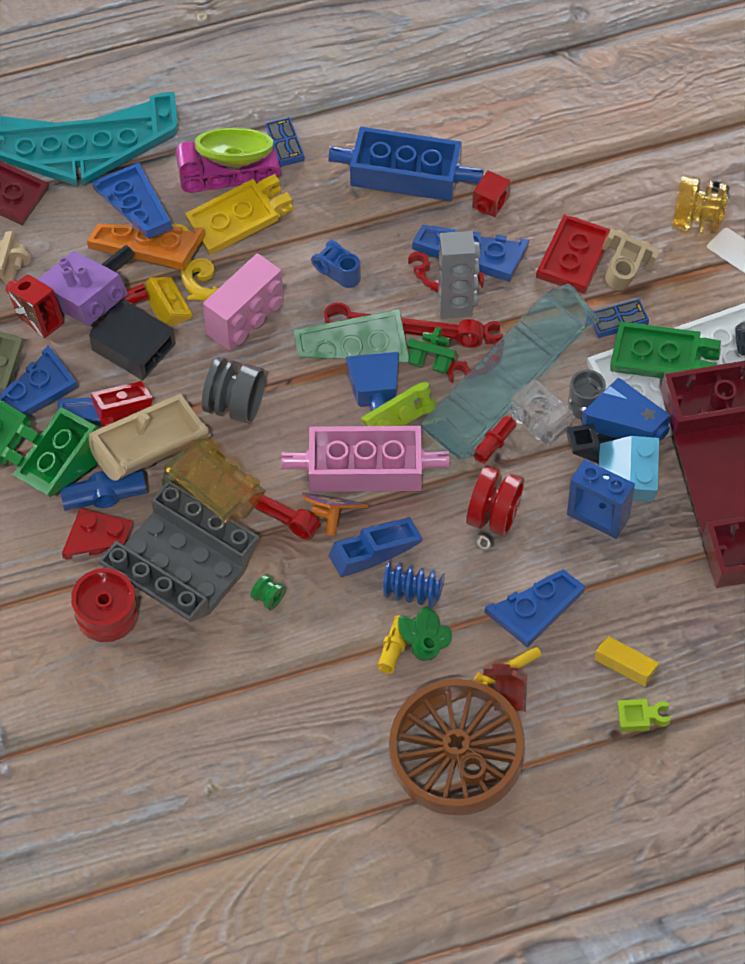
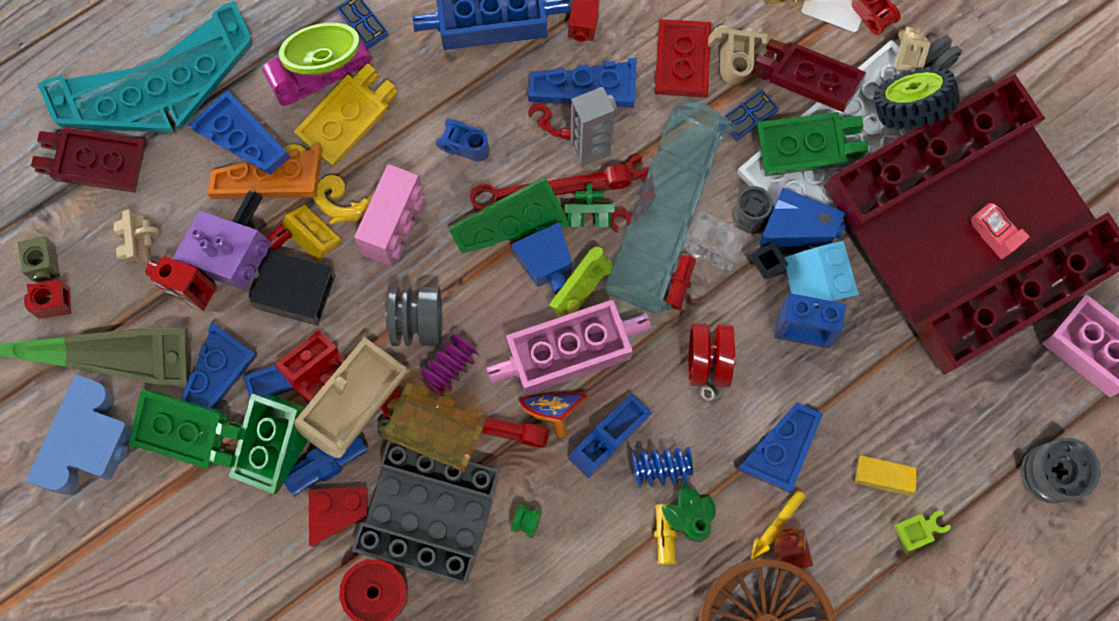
camera: 20 degrees left, 15 degrees up
(249, 440) = (448, 365): none -> magenta piece
(688, 295) = (809, 74): none -> dark red tile

